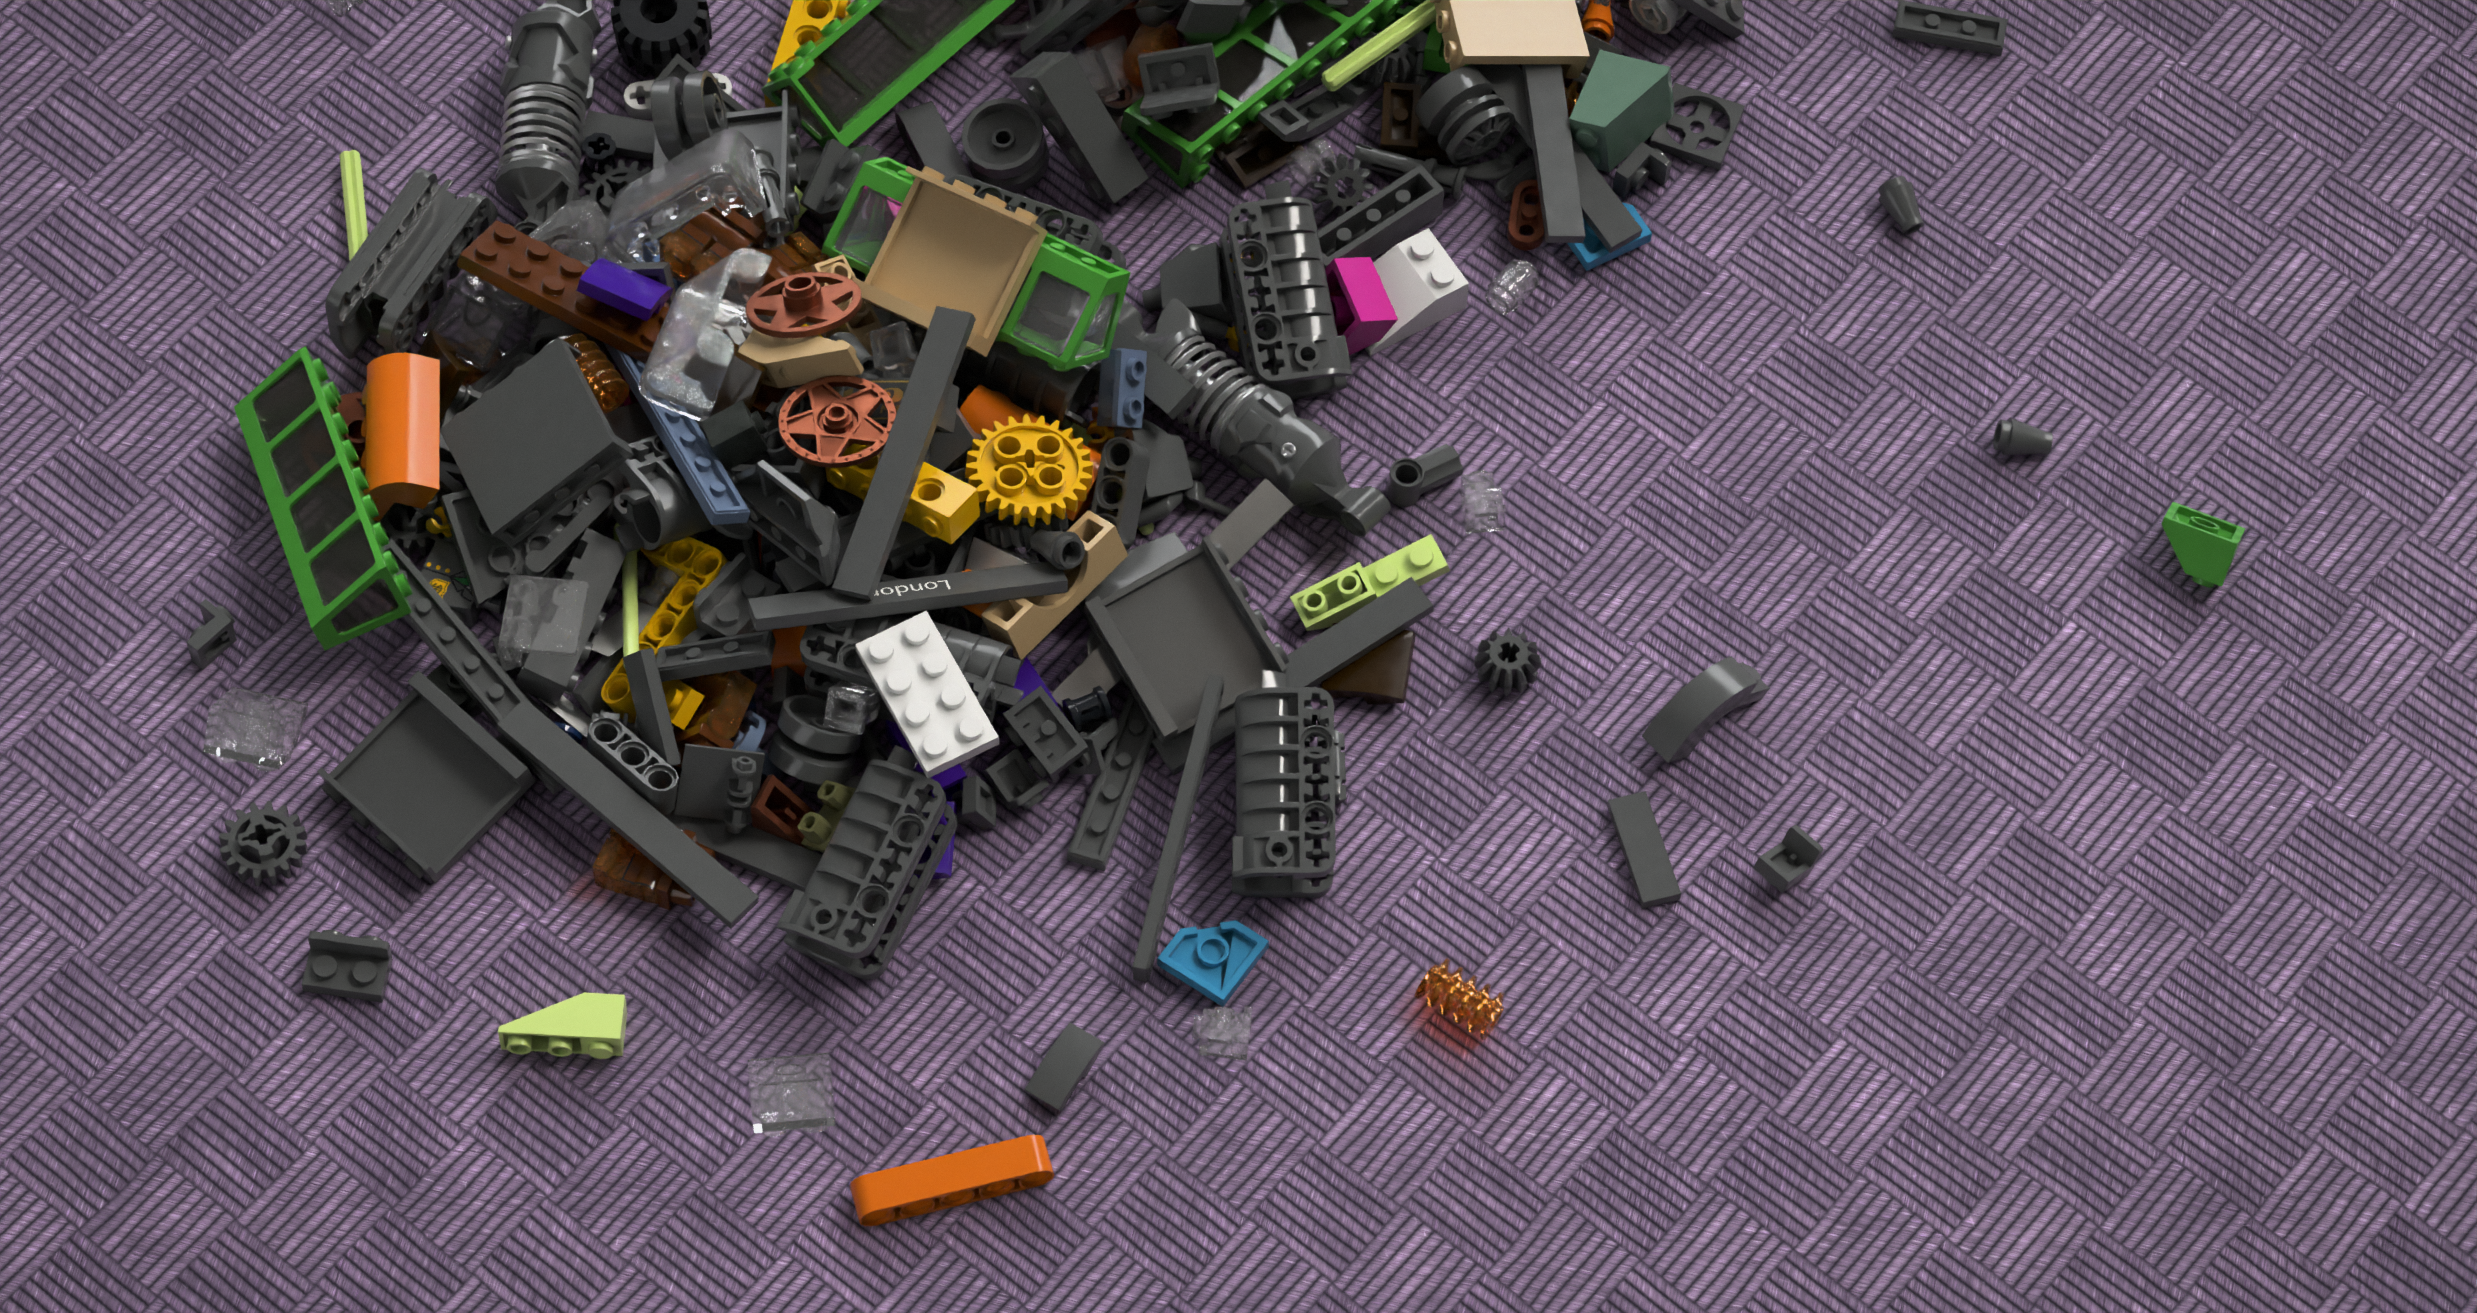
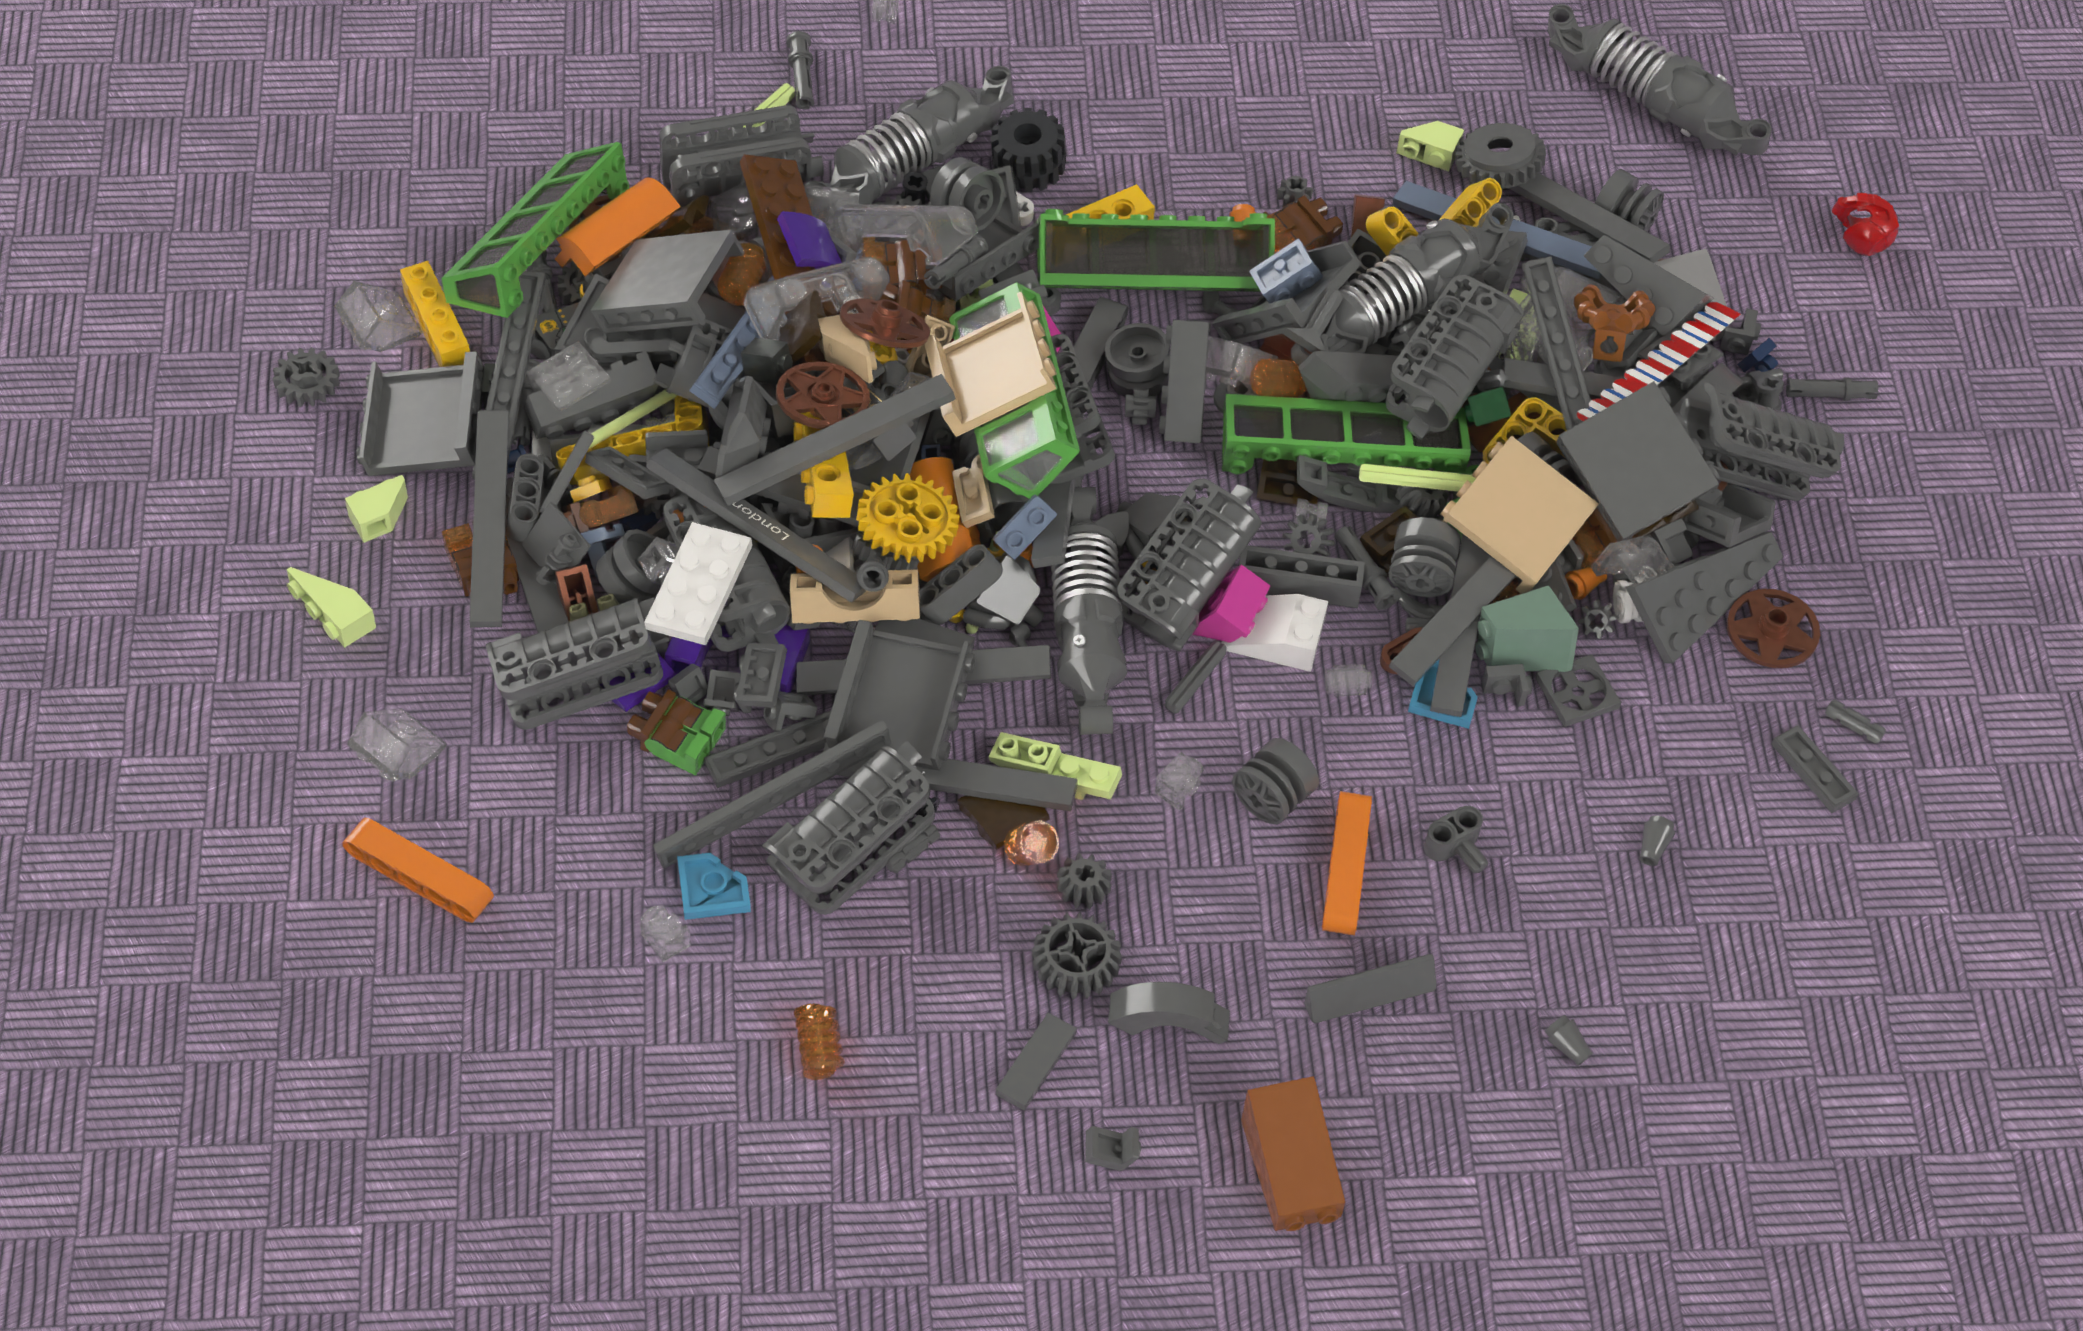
camera: 45 degrees right, 5 degrees down
(211, 639) = (411, 254): dark grey bracket -> none
(313, 677) = (434, 314): none -> yellow brick
(326, 116) = (801, 60): none -> dark grey pin
(347, 966) = (268, 475): dark grey bracket -> none
(495, 905) = (377, 508): none -> yellowish green slope
(1017, 851) = (677, 730): none -> hips
(1039, 394) = (973, 494): none -> tan hinge
(1052, 187) = (1140, 406): none -> dark grey gear
(1064, 1066) = (554, 866): dark grey slope -> none
(1087, 708) = (793, 682): black bush -> none
(1178, 80) = (1266, 396): dark grey bracket -> none
(1383, 398) = (1195, 677): none -> dark grey axle
(1423, 473) = (1164, 734): dark grey piece -> none
(1436, 668) = (1031, 843): none -> clear orange wheel
(1566, 429) = (1275, 781): none -> dark grey wheel
(1566, 711) = (1064, 969): none -> dark grey gear
(1644, 37) = (1607, 619): none -> dark grey gear
(1692, 448) = (1347, 863): none -> orange beam
(1754, 346) = (1457, 838): none -> dark grey beam
(1829, 540) = (1371, 988): none -> dark grey slope
(1932, 732) = (1293, 1154): none -> dark orange slope
(2202, 543) = (1614, 1205): bright green slope -> none

